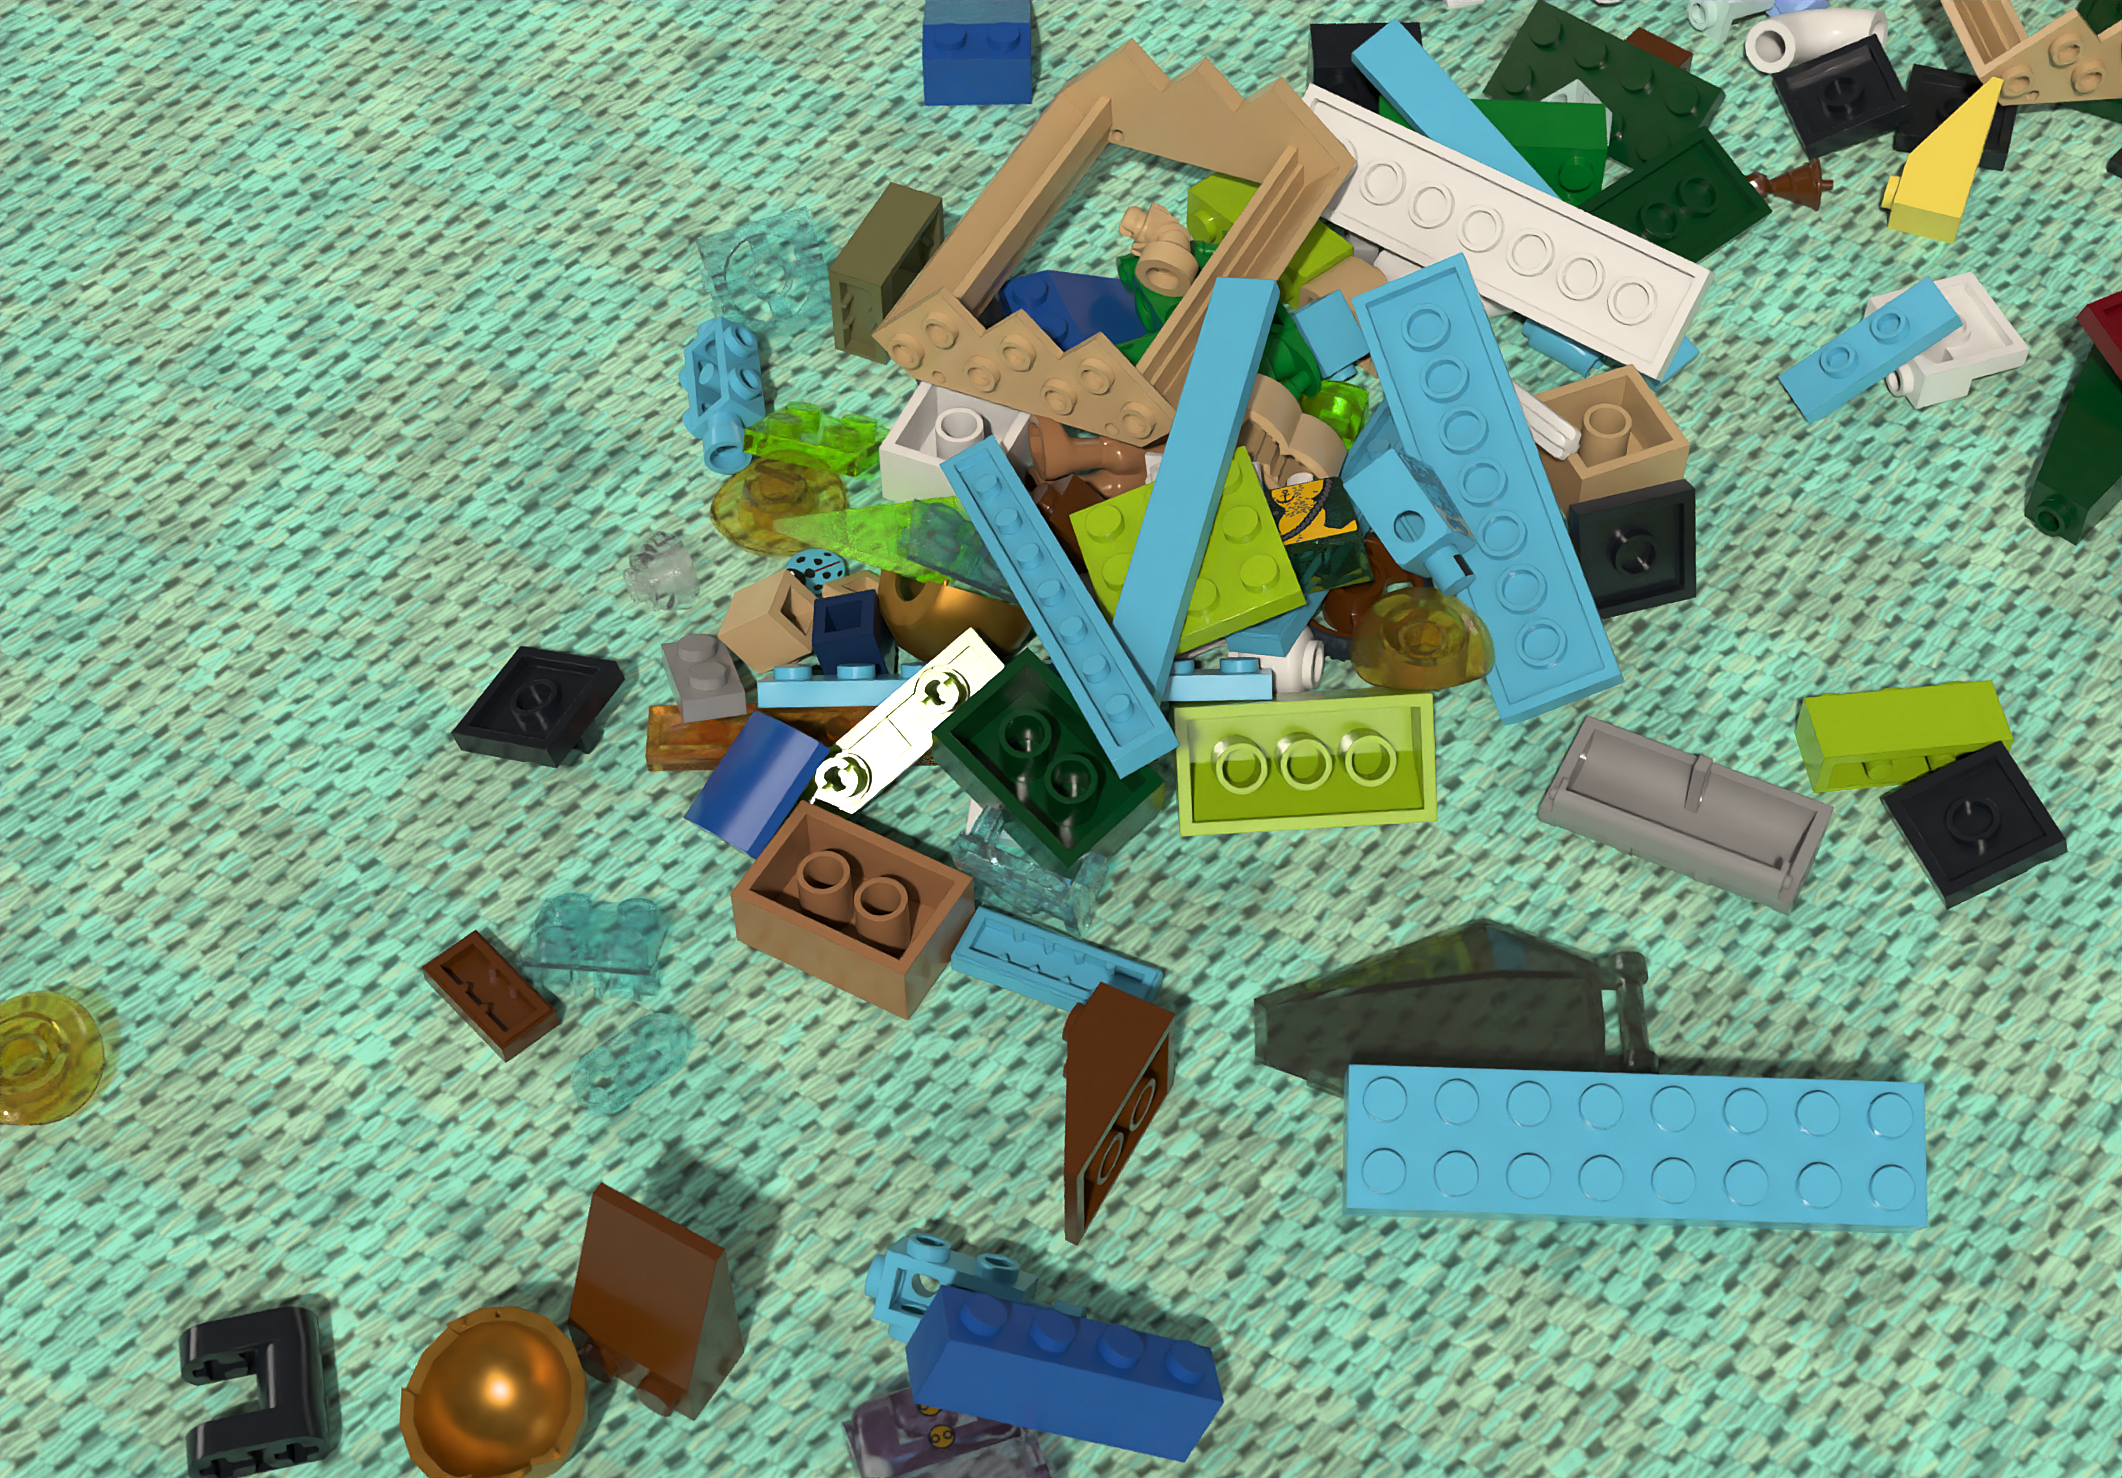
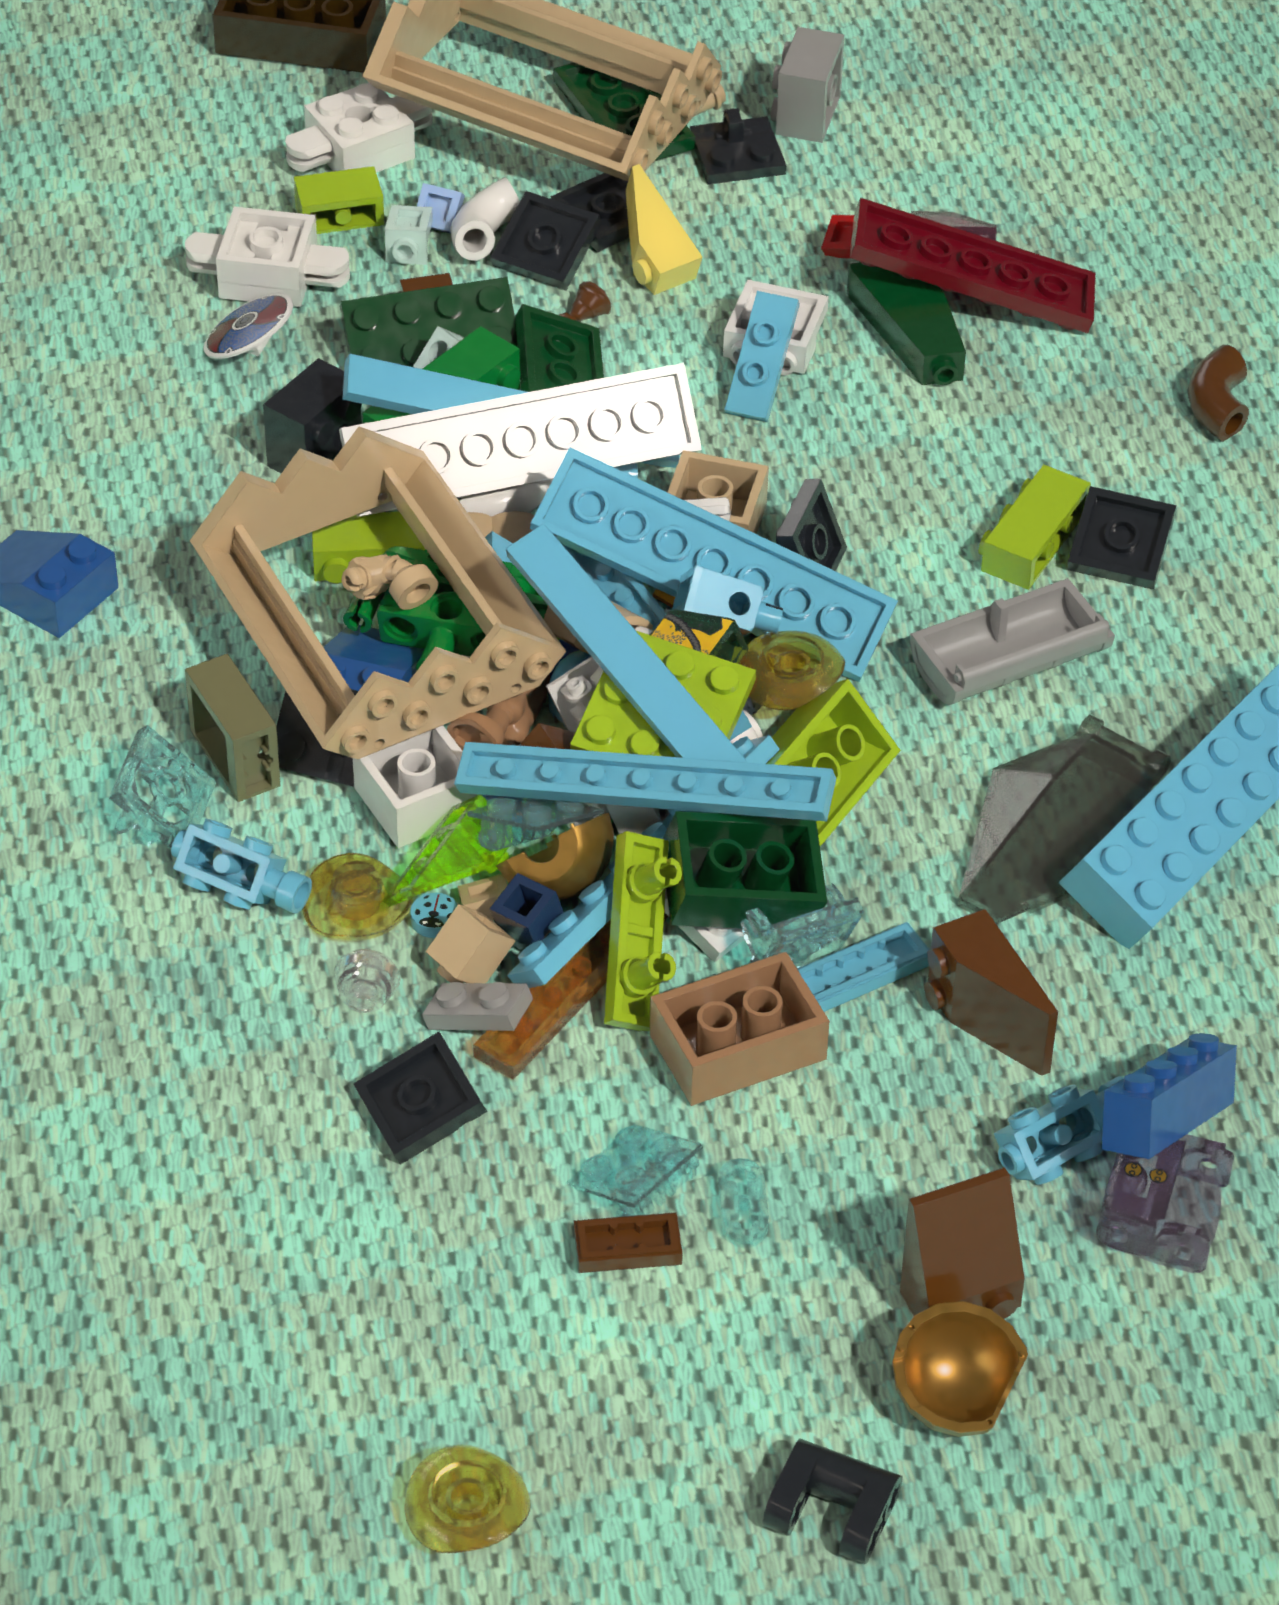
camera: 55 degrees left, 5 degrees down
(756, 784) = (606, 1017): blue slope -> none
(815, 440) = (336, 843): clear neon green plate -> none

